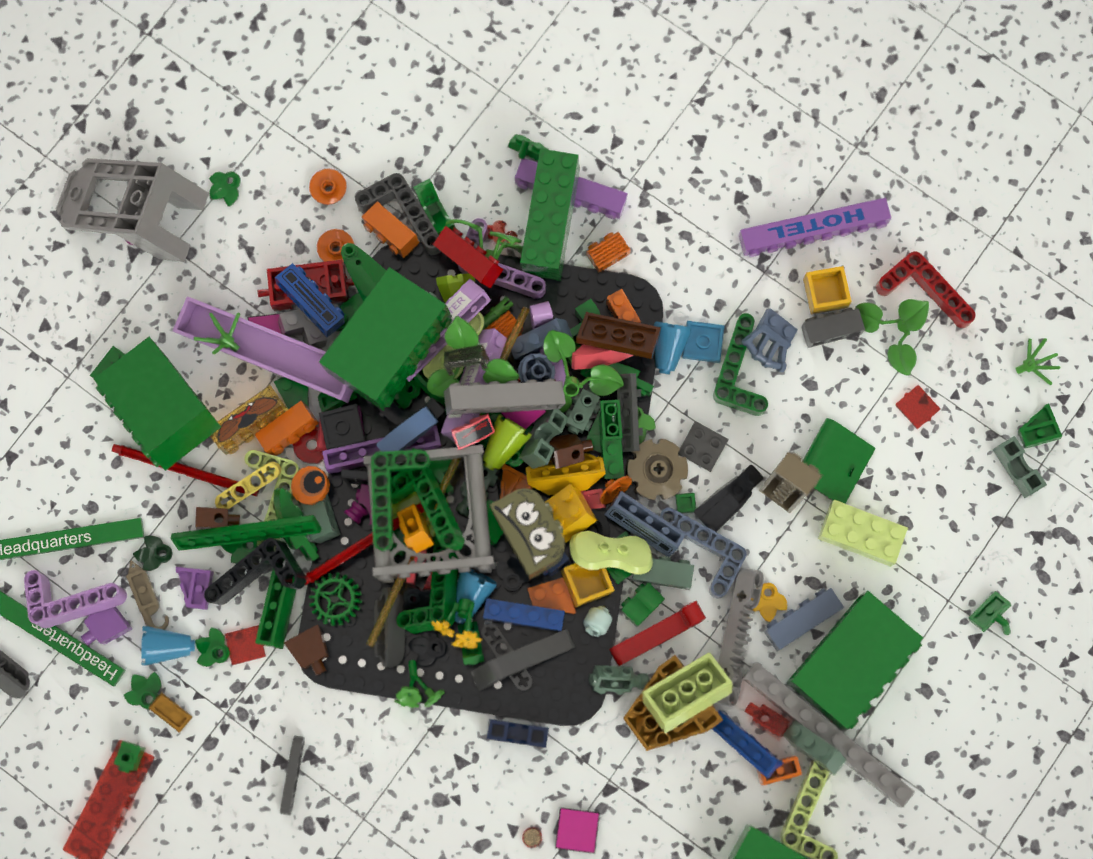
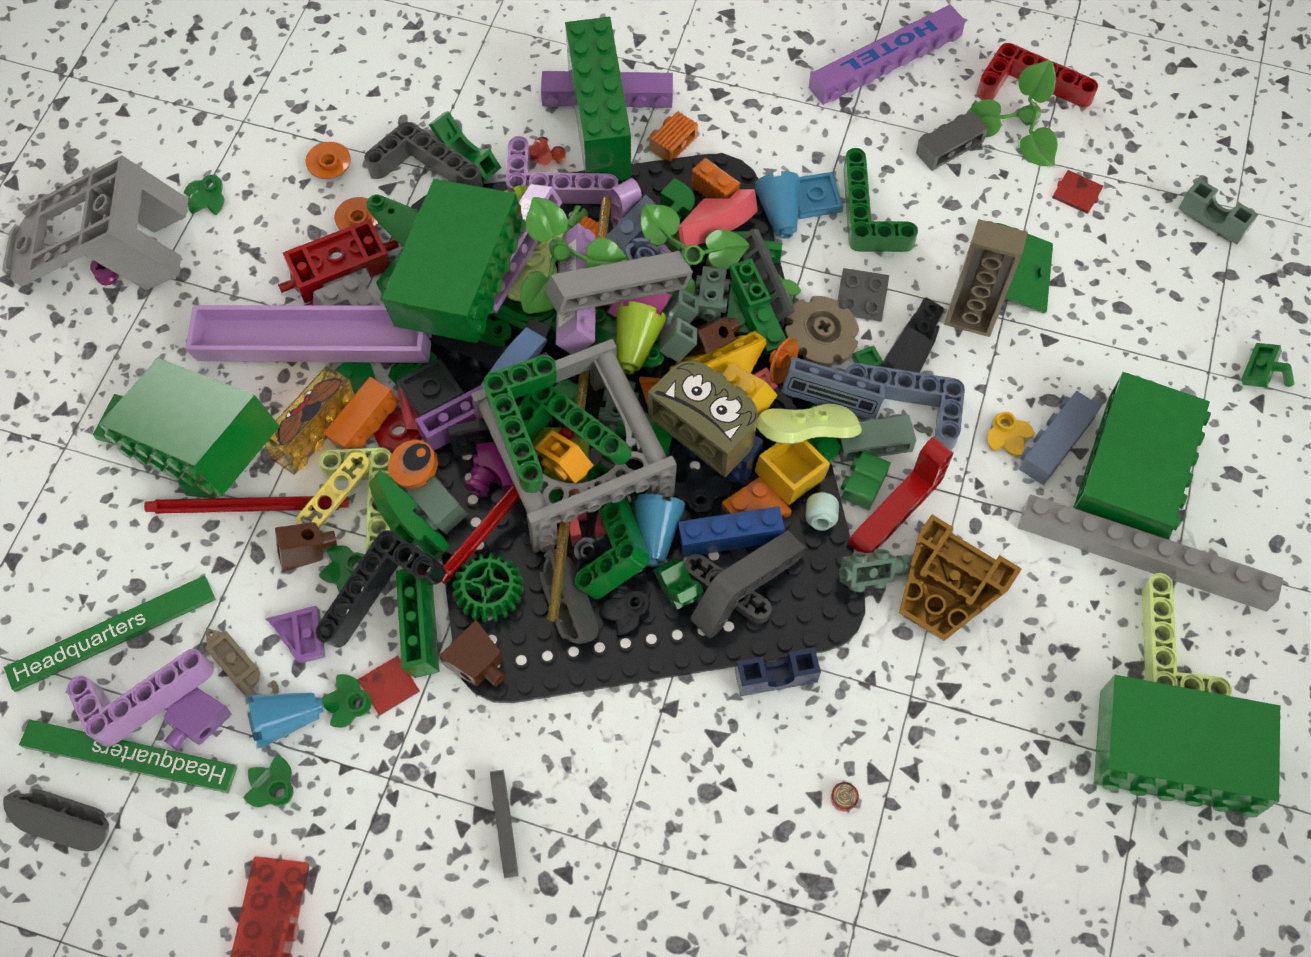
camera: 20 degrees left, 15 degrees down
(129, 756) = (274, 869): green brick -> none
(151, 553) = (234, 611): dark green plate -> none
(170, 712) = (313, 797): pearl gold tile -> none
(225, 340) = (256, 335): bright green plant -> none
(246, 532) = (347, 540): green tile -> none
(310, 299) = (345, 263): blue brick -> none
(390, 230) = (410, 177): orange brick -> none
(409, 696) = (627, 662): bright green plant -> none
(465, 357) = (558, 248): clear smoke hinge -> none
(465, 610) = (658, 536): plant -> none
(467, 256) = (519, 166): red brick -> none
(473, 432) = (595, 325): slope -> none
(495, 254) = (544, 163): bright green plant -> none
(525, 147) = (541, 64): green plate -> none
(577, 830) = (897, 768): dark pink tile -> none
(618, 335) = (722, 196): reddish brown plate -> none
(687, 692) = (966, 547): yellowish green brick -> none
(747, 586) = (984, 435): light grey gear -> none
(747, 745) = (1063, 590): blue hinge -> none
(774, 726) = (1074, 557): clear red torso -> none
(779, 332) = (893, 159): sand blue plate -> none
(789, 769) = (1111, 609): orange brick -> none
(814, 747) = (1144, 565): sand green brick -> none
(827, 290) = (929, 104): yellow piece -> none
(862, 533) = (1082, 327): yellowish green brick -> none
(1031, 365) = (1177, 115): bright green plant -> none
(1040, 429) = (1221, 170): green wing -> none

